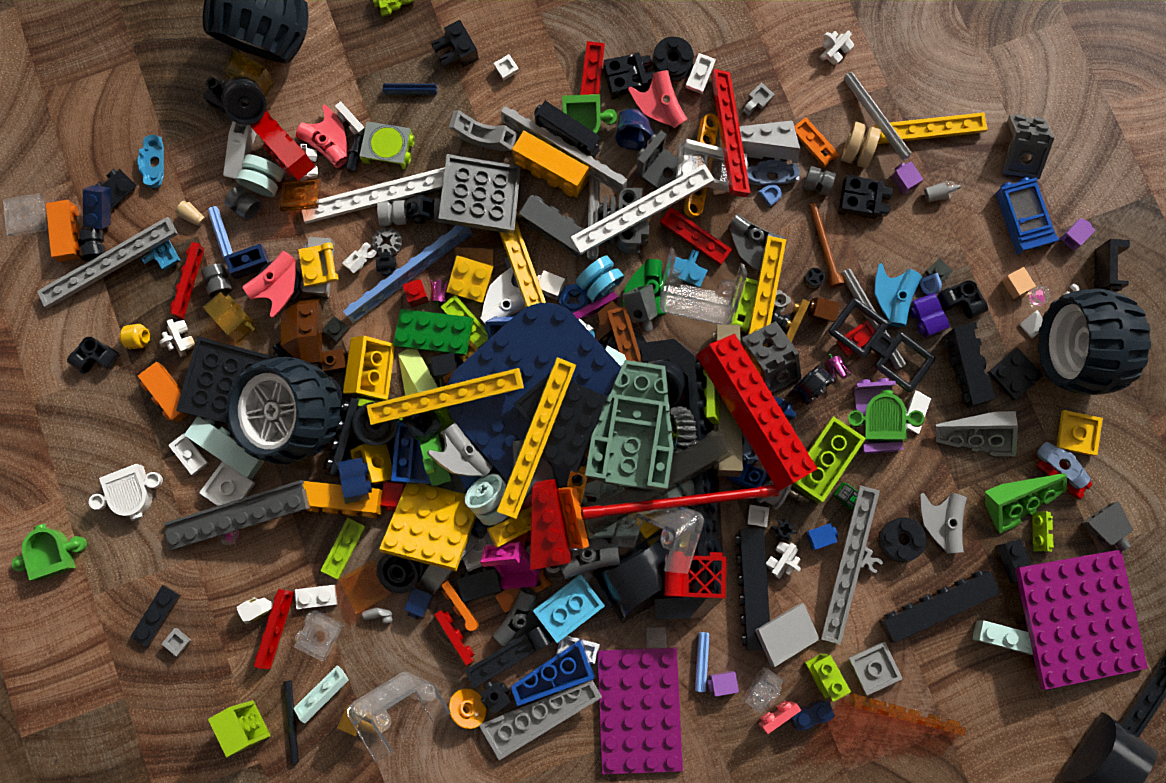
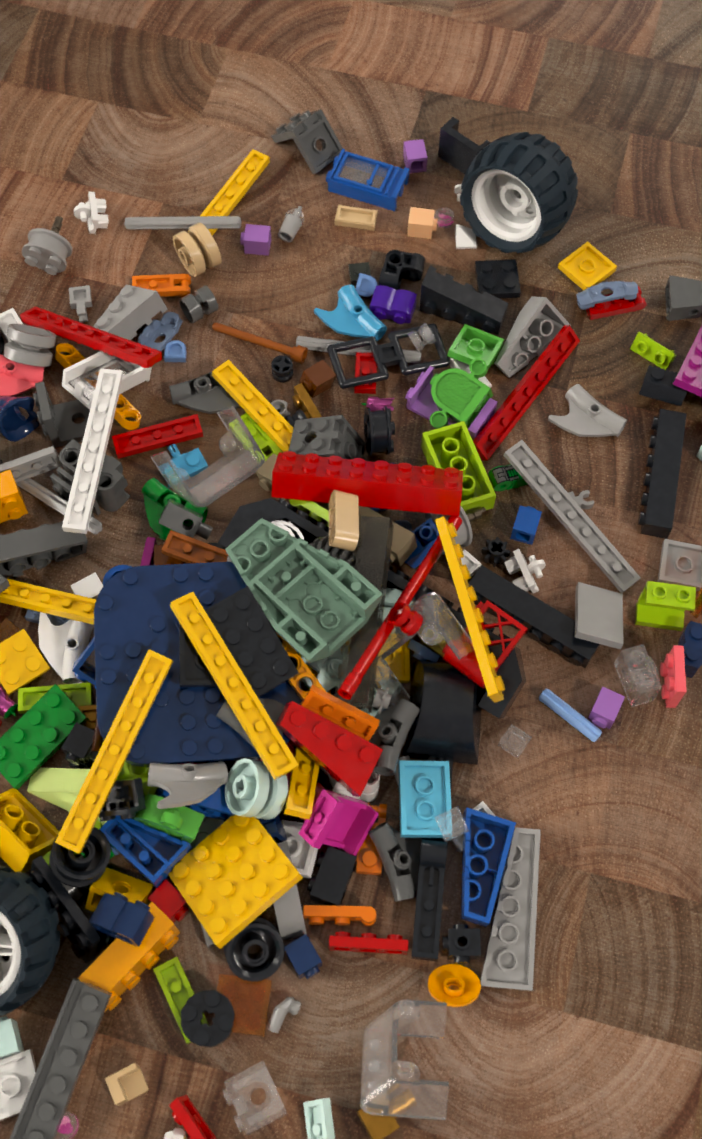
camera: 55 degrees left, 15 degrees down
(274, 553) = (127, 1084): none -> tan panel
(316, 596) = (210, 1072): white plate -> none
(330, 576) = (222, 1022): none -> black plate
(561, 638) = (451, 824): none -> clear tile
(600, 278) = (124, 540): medium azure wheel -> none
(609, 534) = (382, 699): none -> light grey plate
(639, 711) = (580, 809): magenta plate -> none
(665, 513) = (403, 617): none -> red wheel
(692, 97) = (29, 345): none -> light grey wheel
(705, 554) = (473, 616): none -> yellow plate
(709, 419) = (343, 520): none -> tan beam
(778, 43) = (47, 248): none -> light grey wheel
(864, 197) = (244, 282): black hips -> none
(911, 530) = (579, 448): black wheel -> none
(914, 358) = (425, 333): none -> clear wheel
(931, 463) = (525, 392): none -> red plate
(937, 402) = (474, 344): none -> bright green plate
(986, 231) = (356, 217): none -> tan tile
(1015, 500) = (610, 348): bright green wedge -> none

